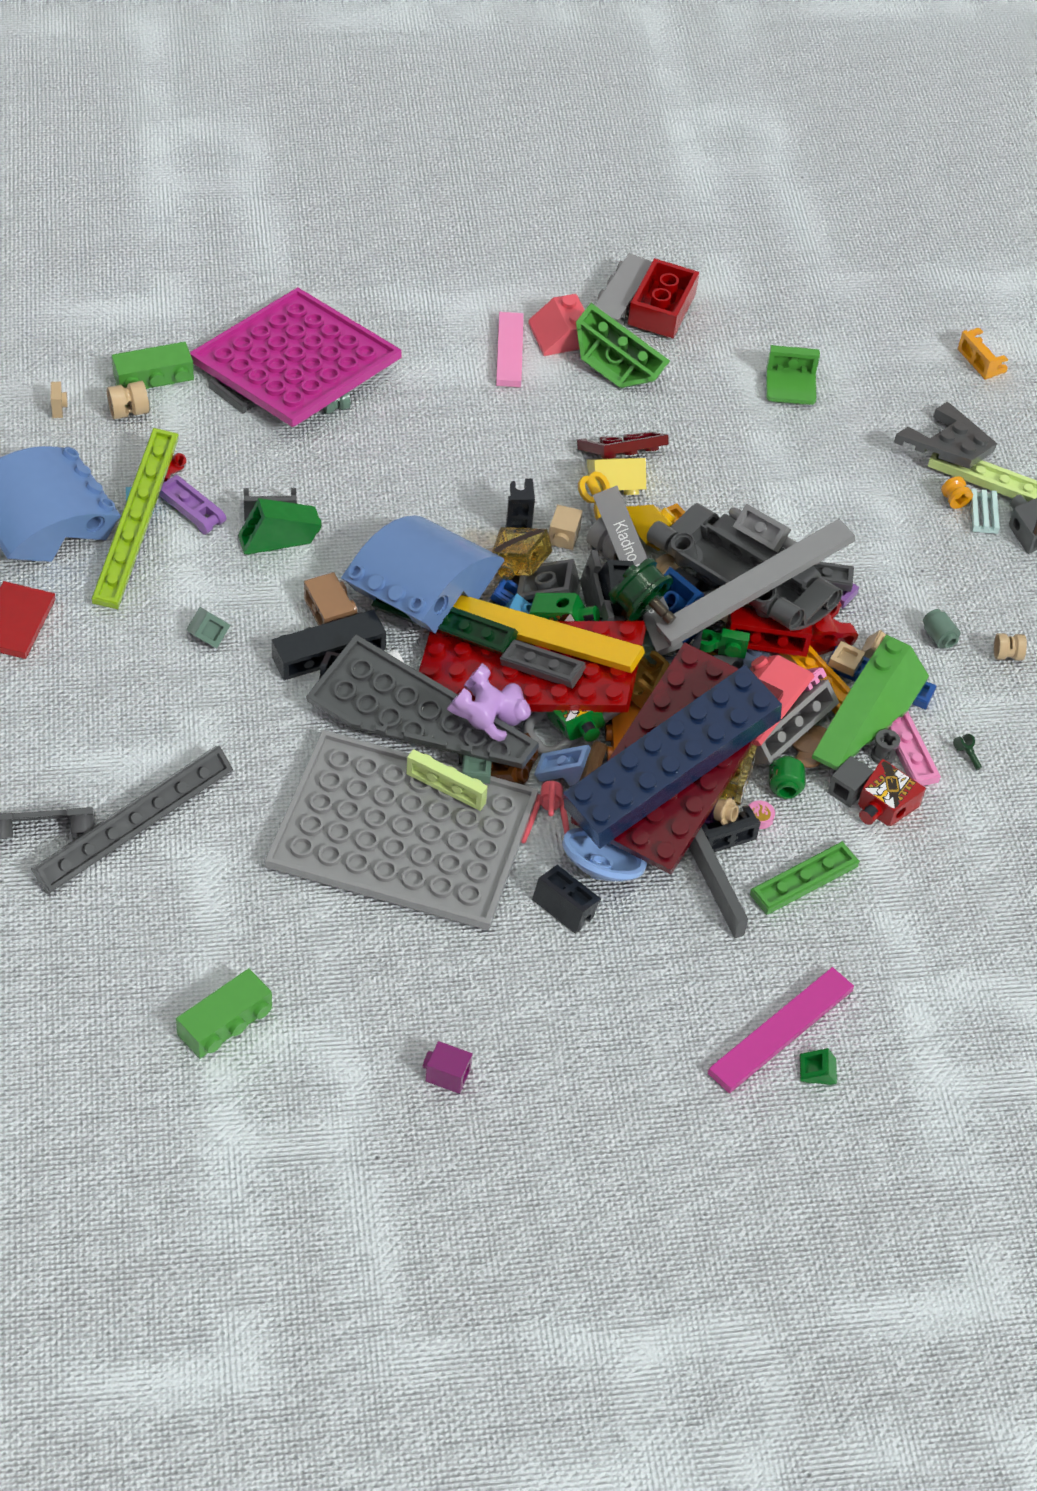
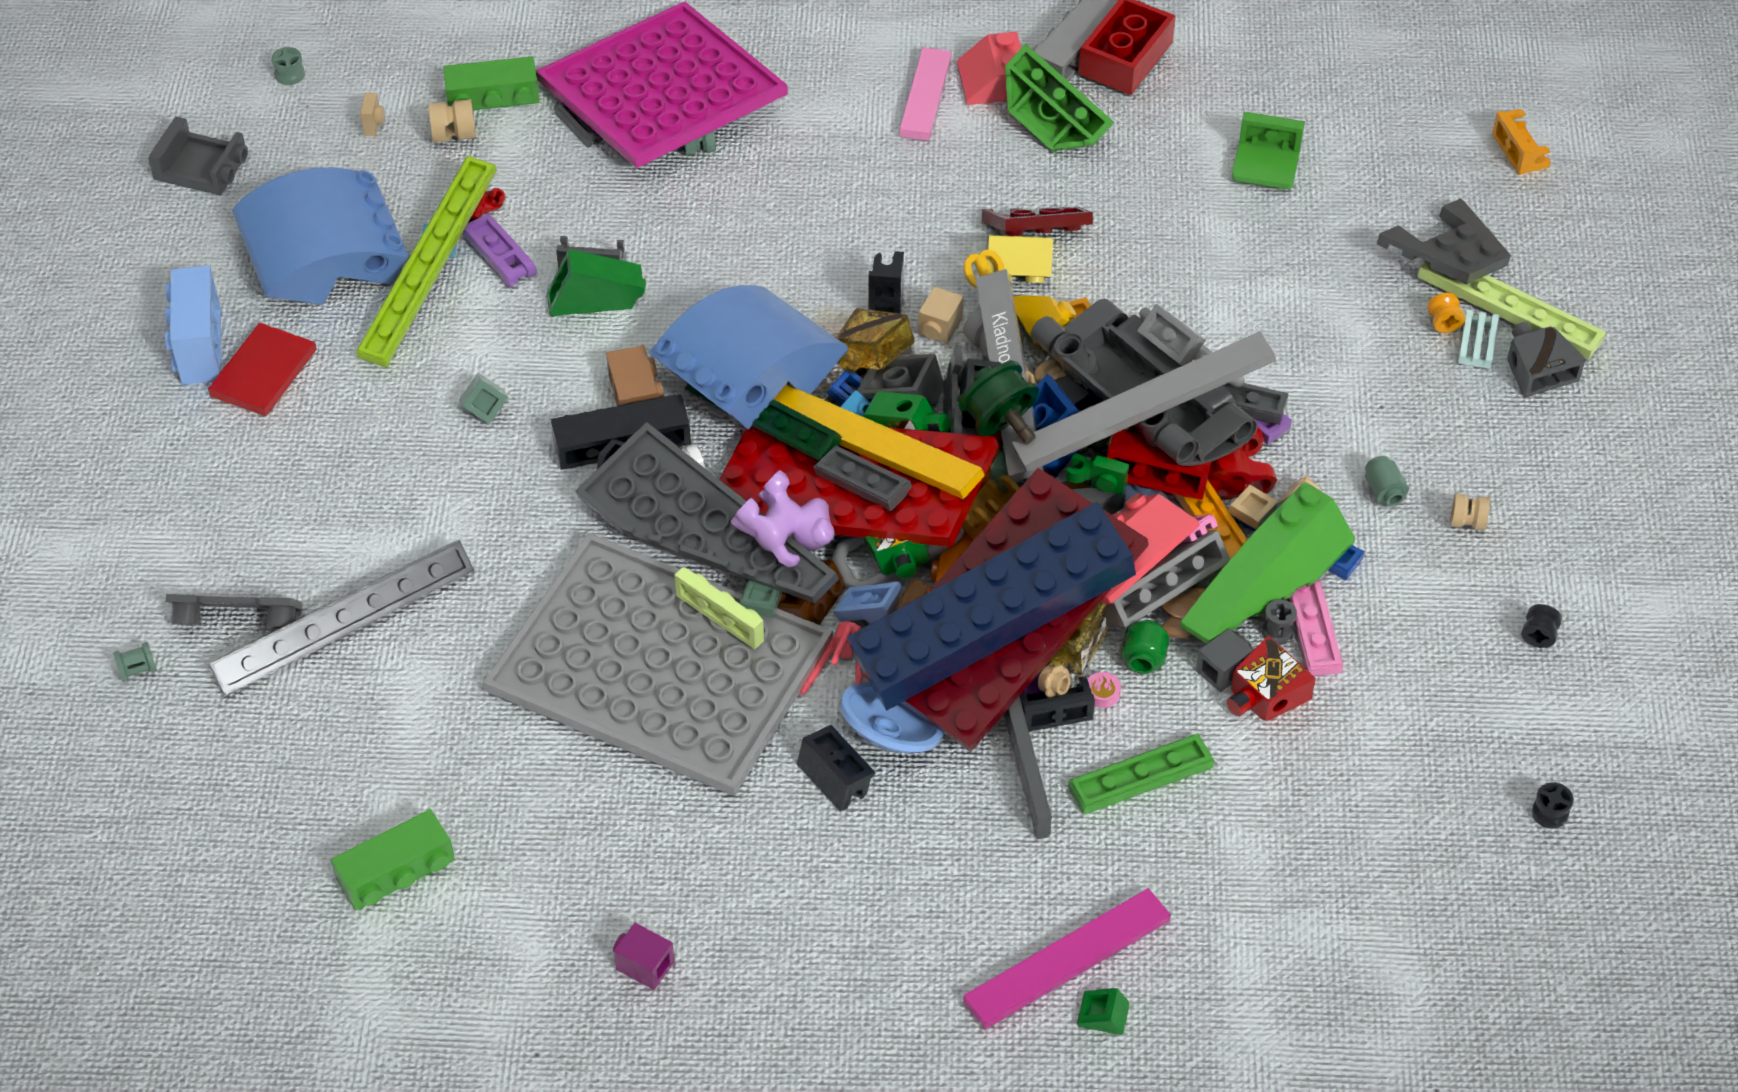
camera: 15 degrees right, 0 degrees up
(969, 740) = (1387, 635): dark green hand -> none

